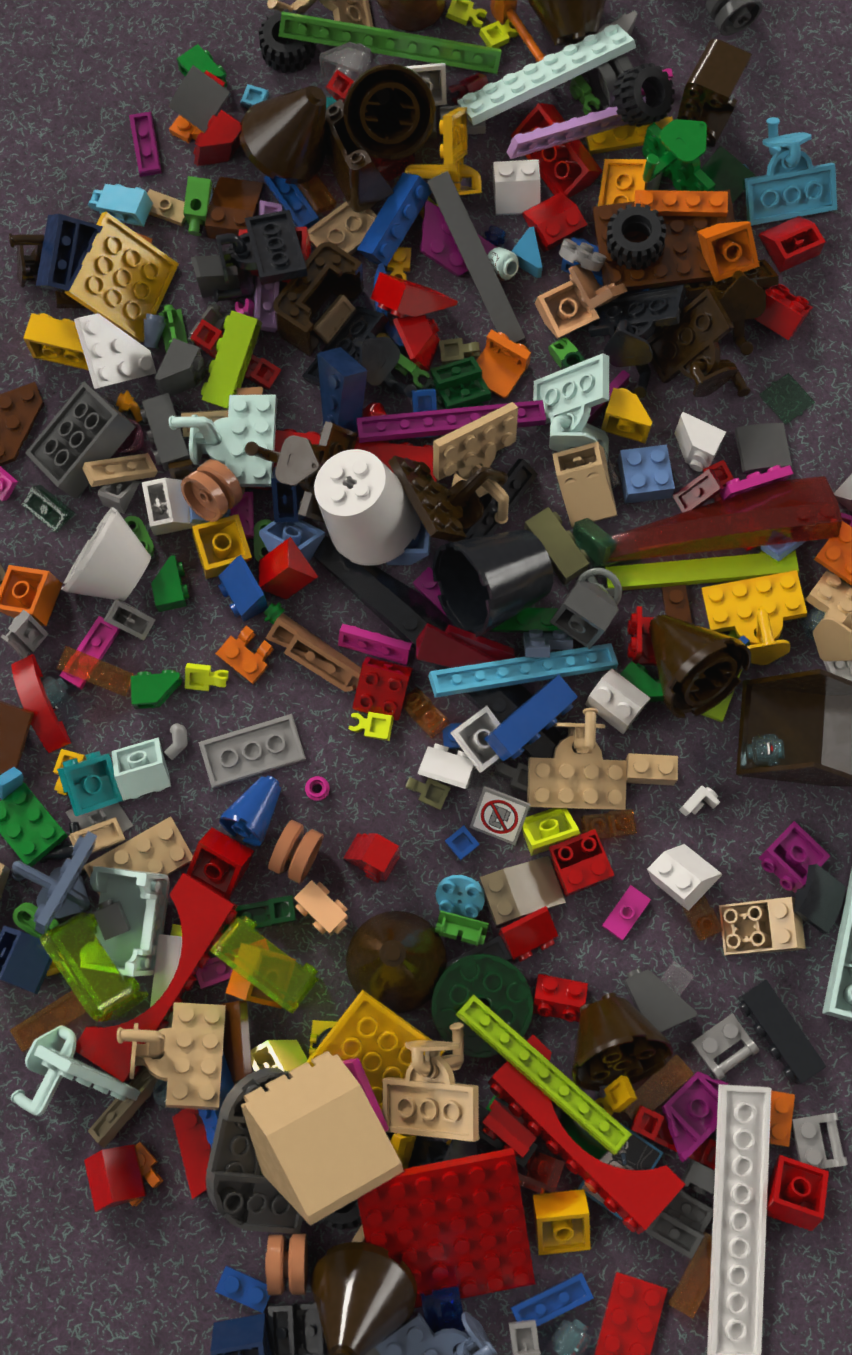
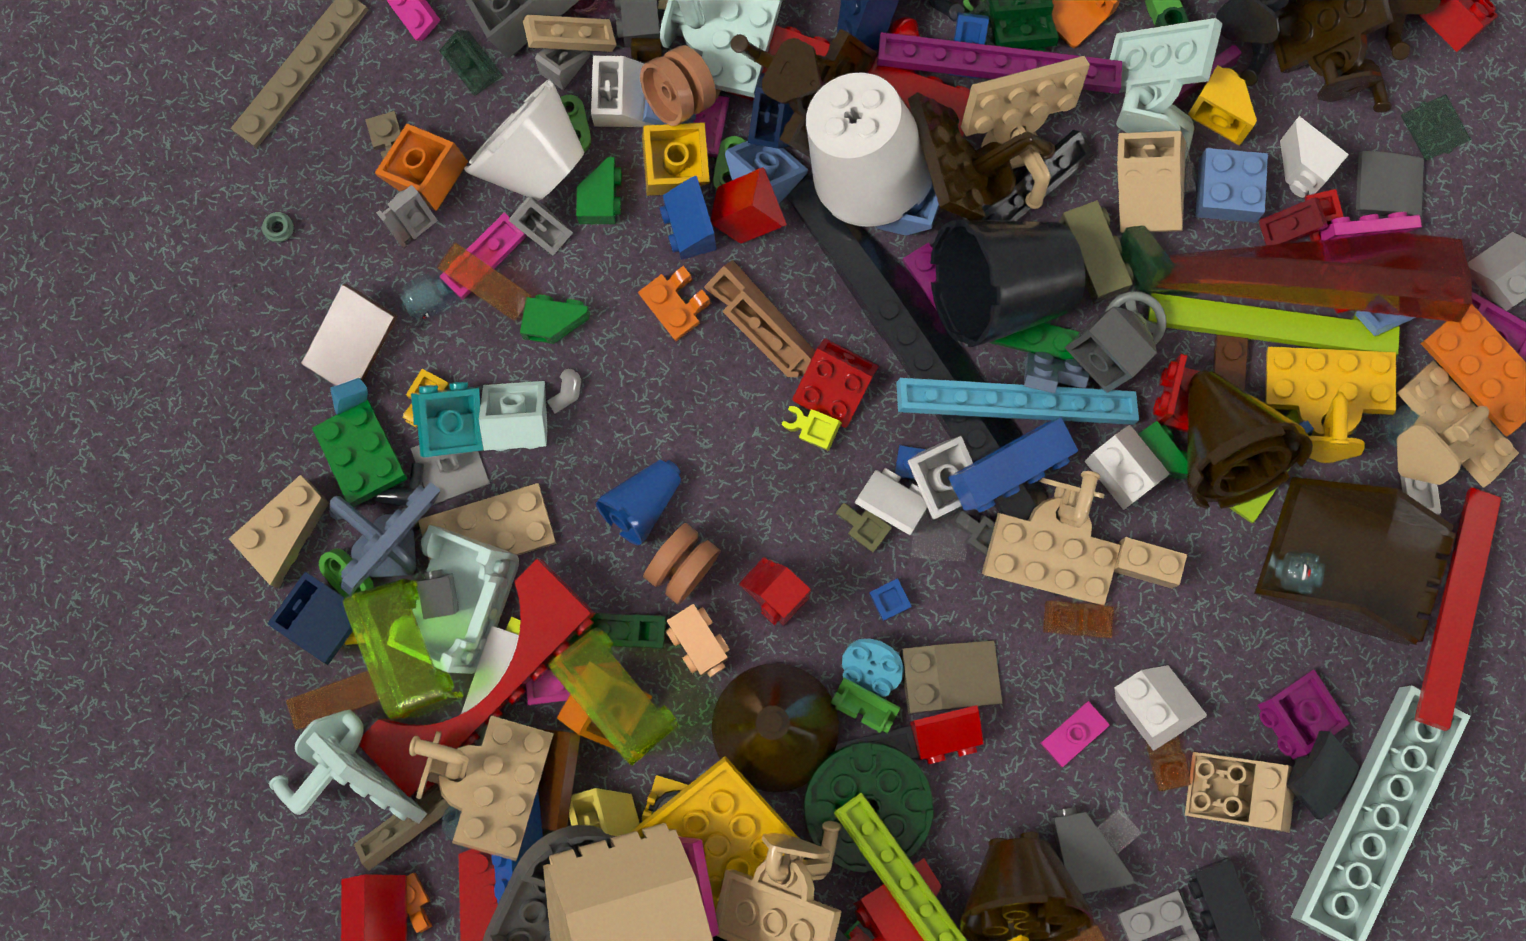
camera: 15 degrees right, 5 degrees up
(34, 699) = (401, 298): red slope -> none
(107, 834) = (454, 486): tan tile -> none
(200, 677) = (613, 319): neon yellow plate -> none
(220, 862) = (585, 554): red slope -> none
(252, 751) = (656, 425): light grey tile -> none
(273, 612) = (721, 257): green plate -> none
(317, 780) = (726, 480): dark pink plate -> none
(374, 644) = (838, 325): dark pink plate -> none
(424, 713) = (881, 426): clear orange slope -> none
(458, 647) = (942, 355): dark red wedge -> none
(499, 815) = (945, 577): piece -> none
(548, 829) = (1002, 608): neon yellow slope -> none
(559, 997) = (967, 819): red bracket -> none
(580, 863) = (1032, 659): red slope -> none
(694, 803) = (1193, 617): white bracket -> none

